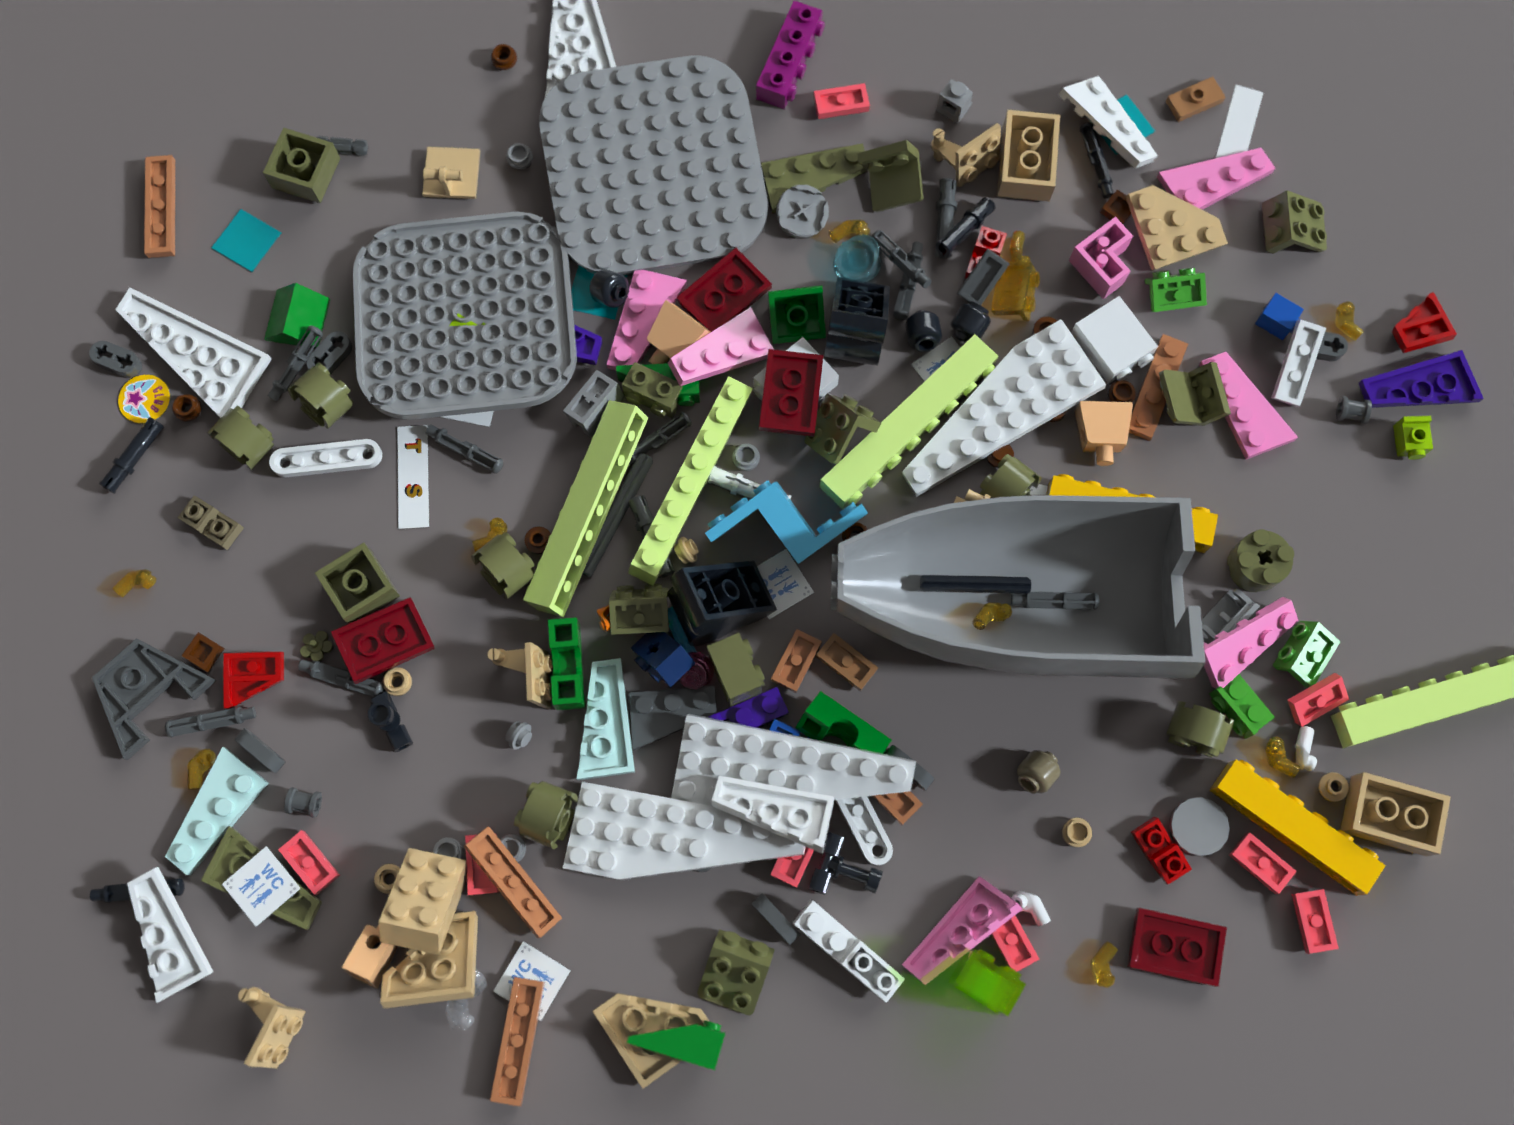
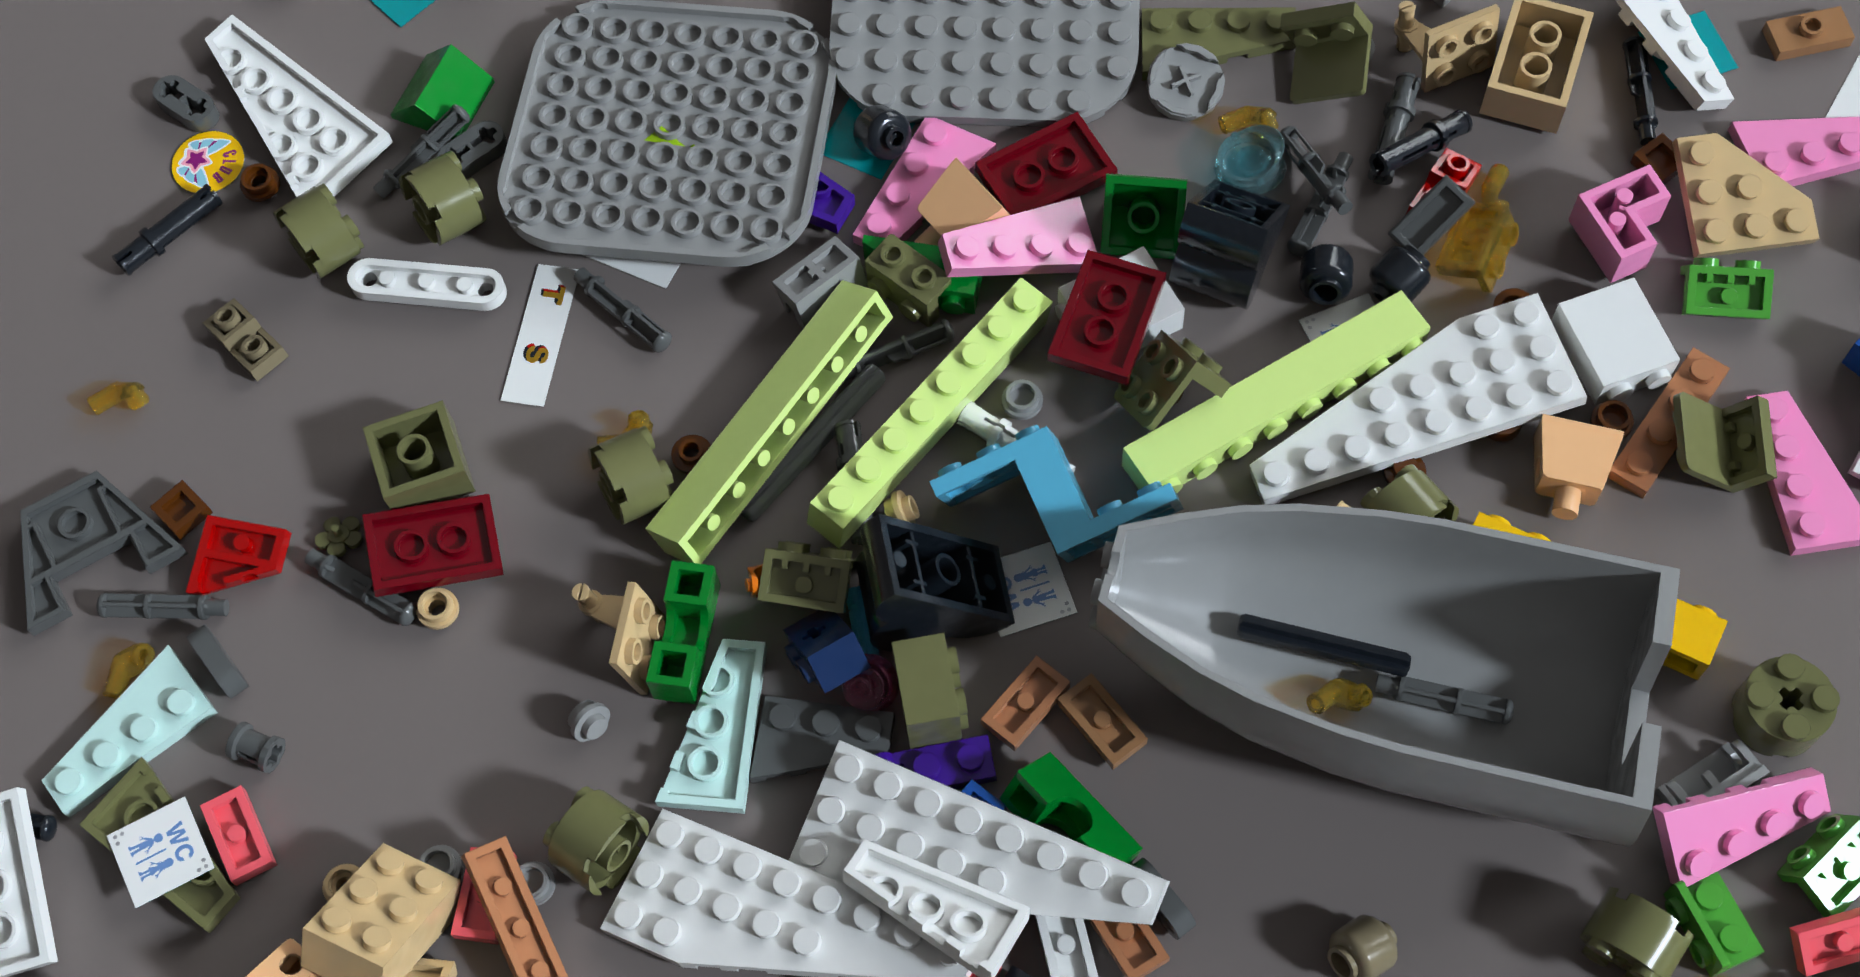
camera: 20 degrees right, 10 degrees down
(385, 716) = (407, 648): black bar -> none

